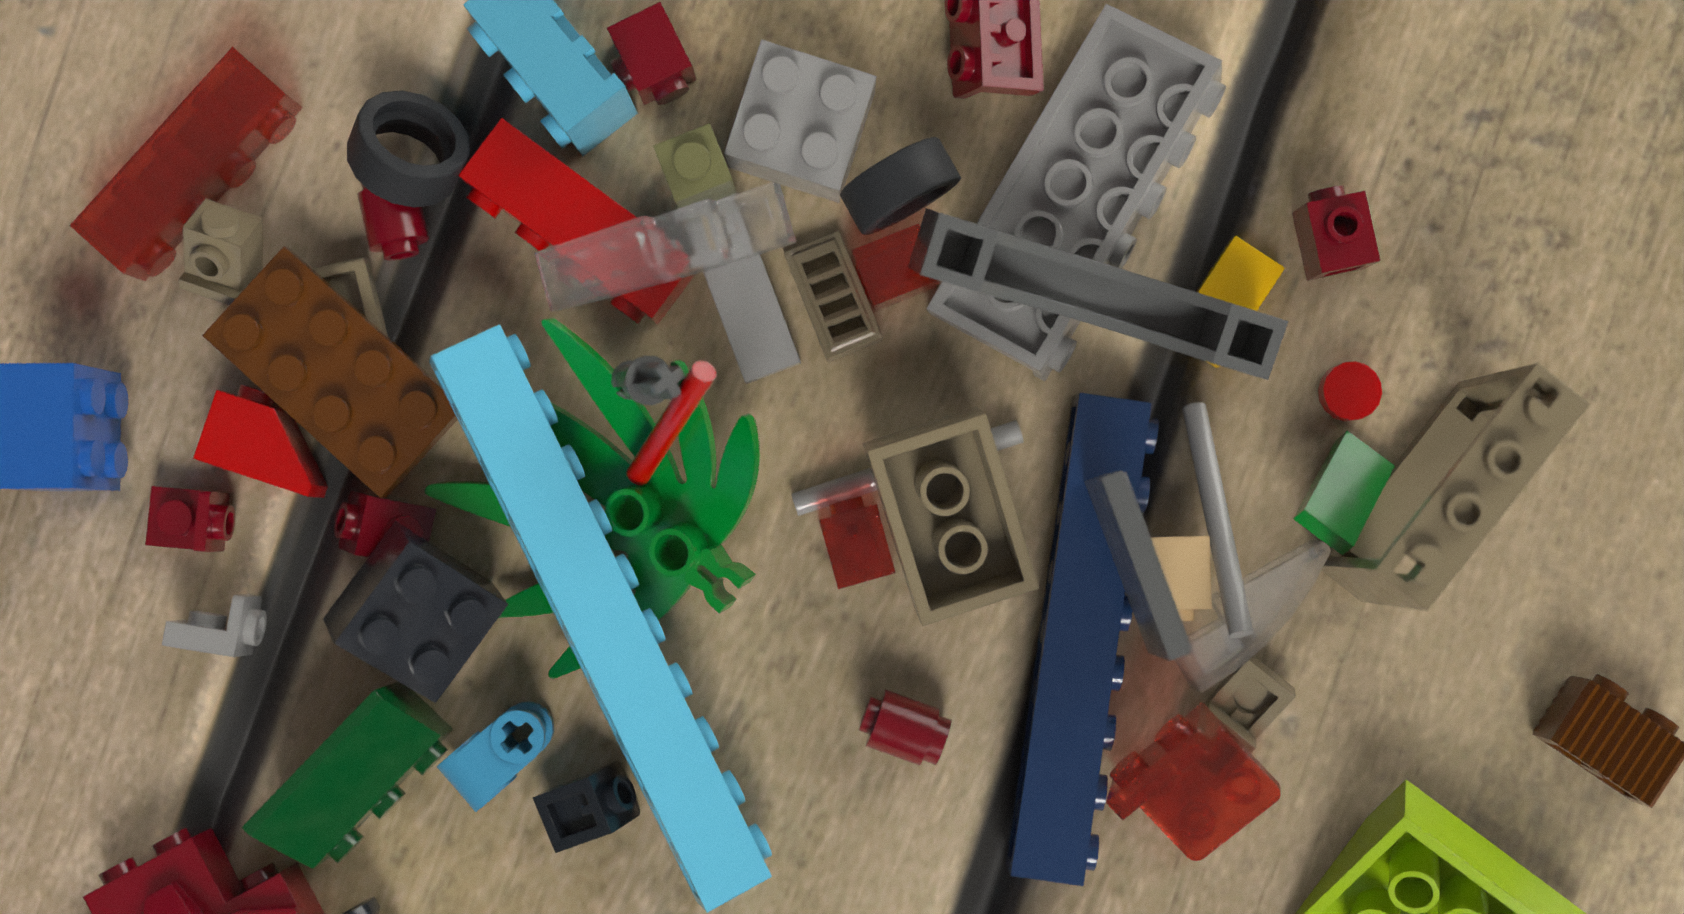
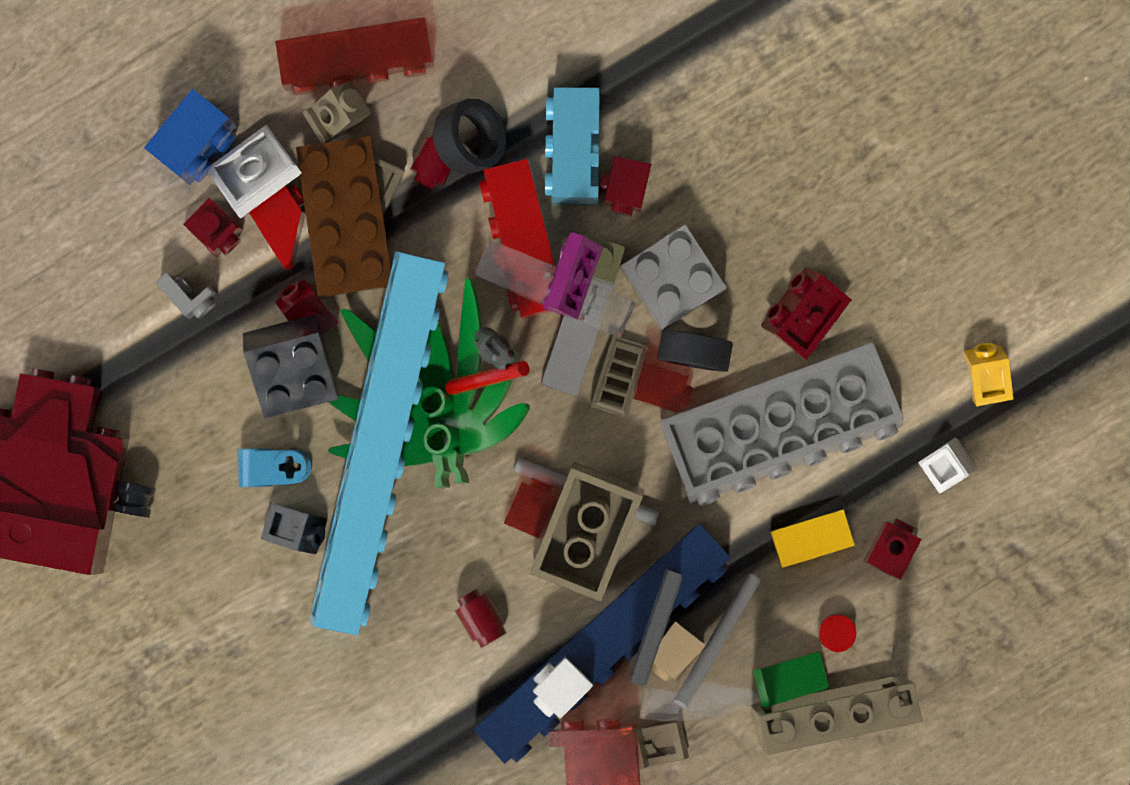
camera: 50 degrees right, 0 degrees up
(176, 408) = (253, 171): none -> white tile
(351, 777) = (195, 422): dark green slope -> none
(672, 206) = (572, 276): none -> magenta bracket
(1078, 737) = (560, 687): none -> white brick
(1096, 294) = (745, 480): dark grey arch -> none
(1315, 82) = (948, 465): none -> white slope

